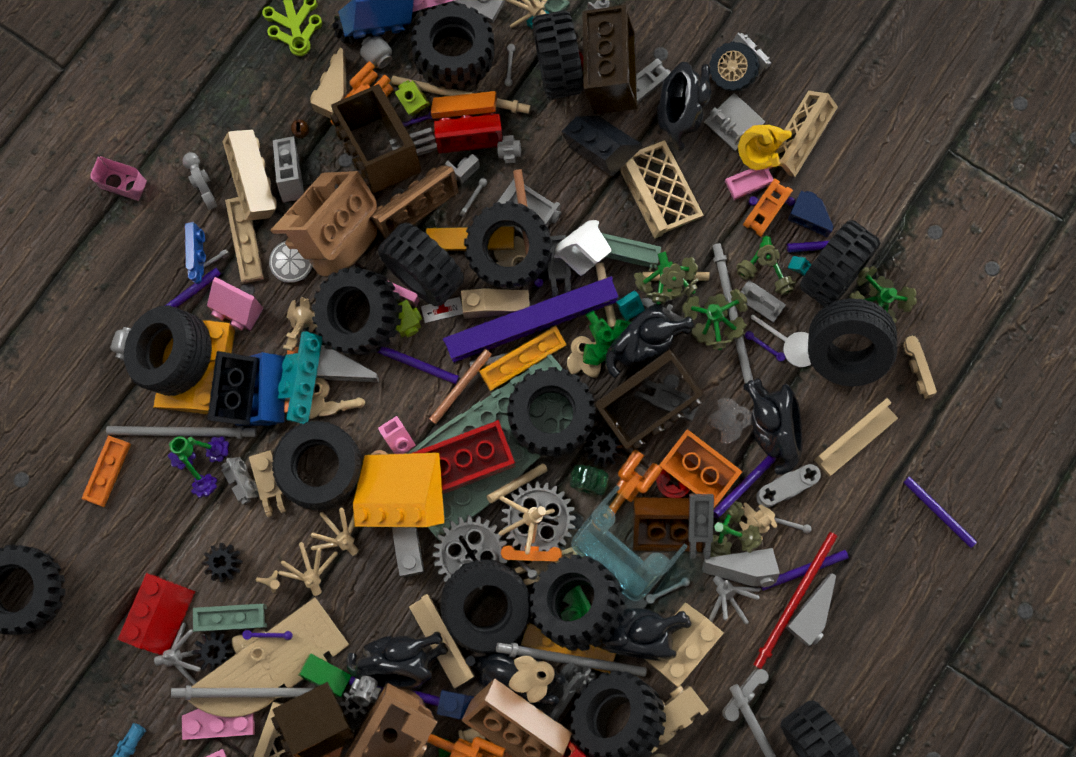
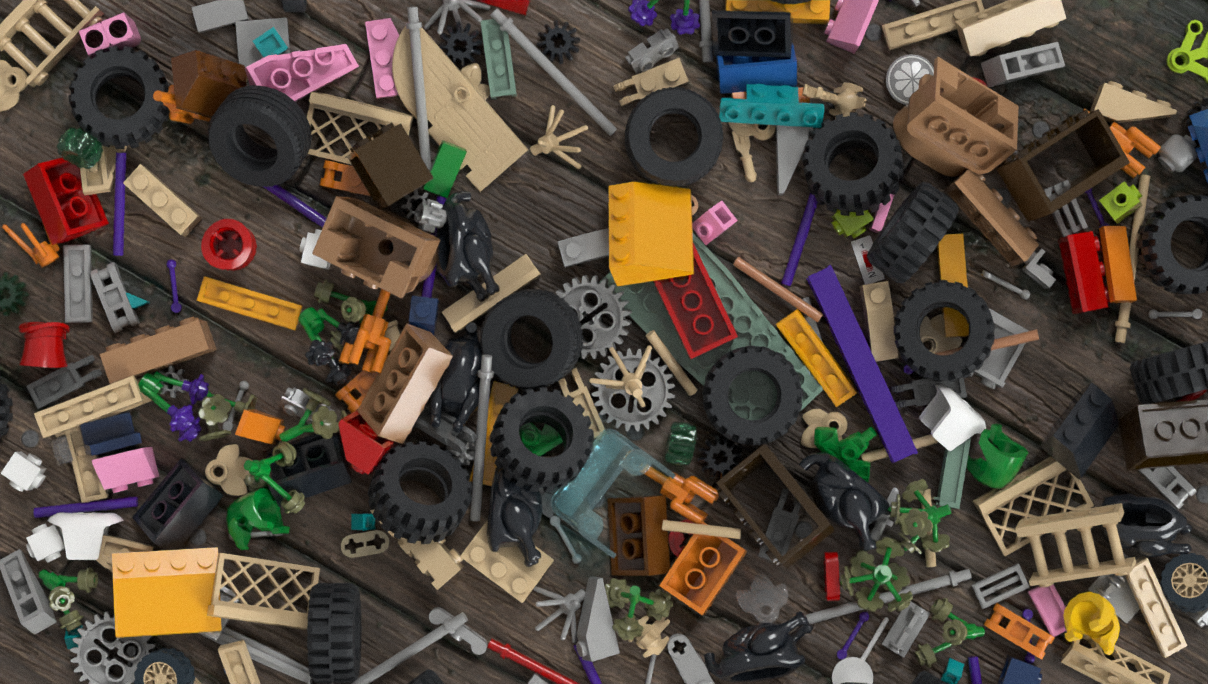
camera: 80 degrees right, 10 degrees up
(245, 570) = (507, 25): none -> light grey bar
(248, 634) = (480, 81): dark purple hinge -> none
(271, 581) = (541, 98): tan bar -> none
(303, 127) = (1076, 77): reddish brown hinge -> none
(343, 539) = (594, 173): tan plant -> none
(509, 149) = (1066, 322): light grey gear -> none
(509, 553) = (590, 362): orange plate -> none
(528, 680) = (453, 393): tan plate -> none
(532, 574) = (571, 387): light grey hinge -> none
(621, 206) = (1000, 464): none -> green piece
(630, 305) = (887, 477): teal plate -> none
(666, 466) = (701, 529): none -> tan bar
(678, 144) = (1083, 521): none -> tan fence
(700, 523) = (640, 571): dark grey hinge -> none
(713, 359) = (831, 576): none -> red beam
(735, 238) = (980, 594): none -> light grey tile
(743, 486) = (686, 617): dark purple bar -> none
(752, 97) = (1155, 608): none -> tan tile

